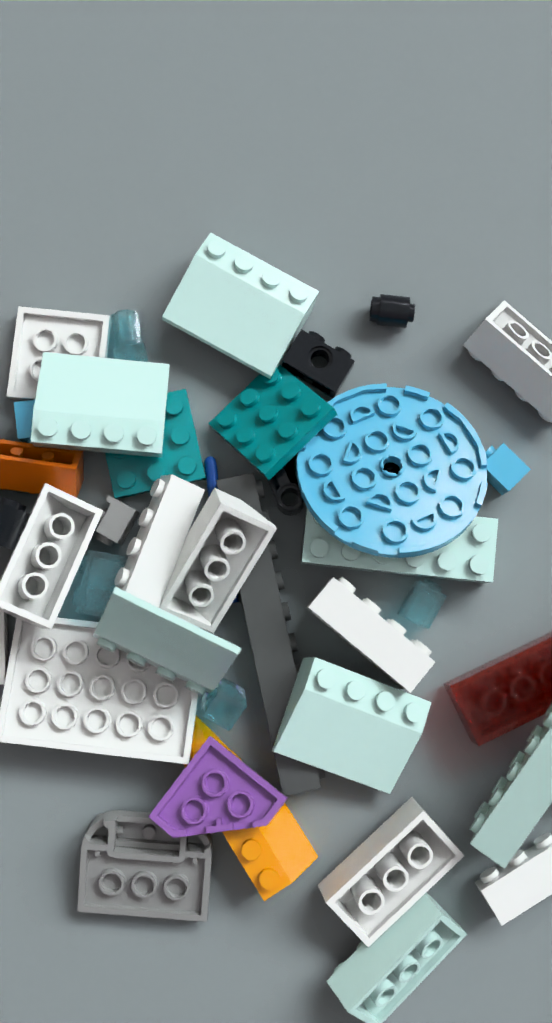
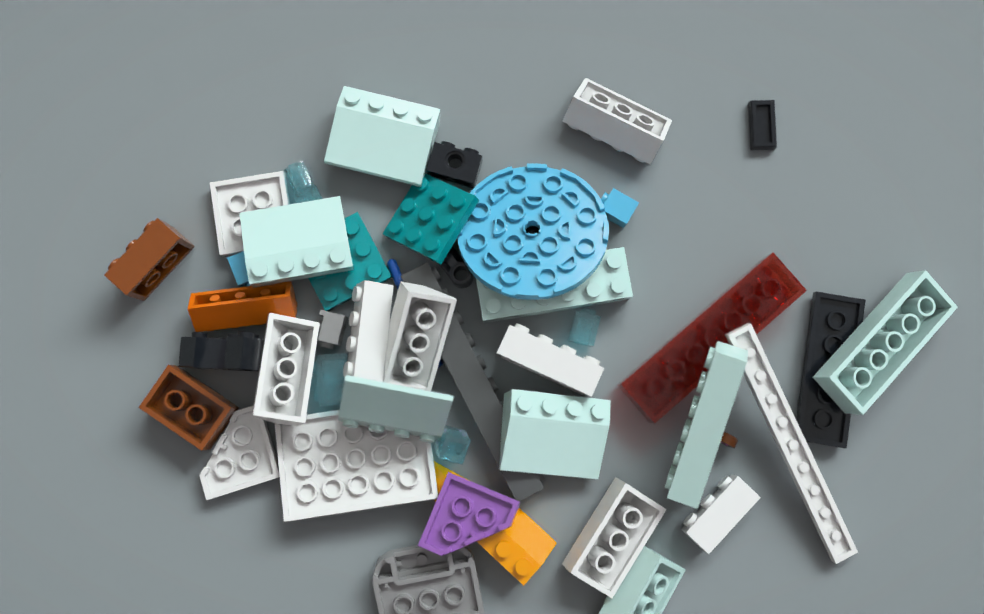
camera: 15 degrees left, 0 degrees up
(391, 310) = (500, 109): black brick -> none

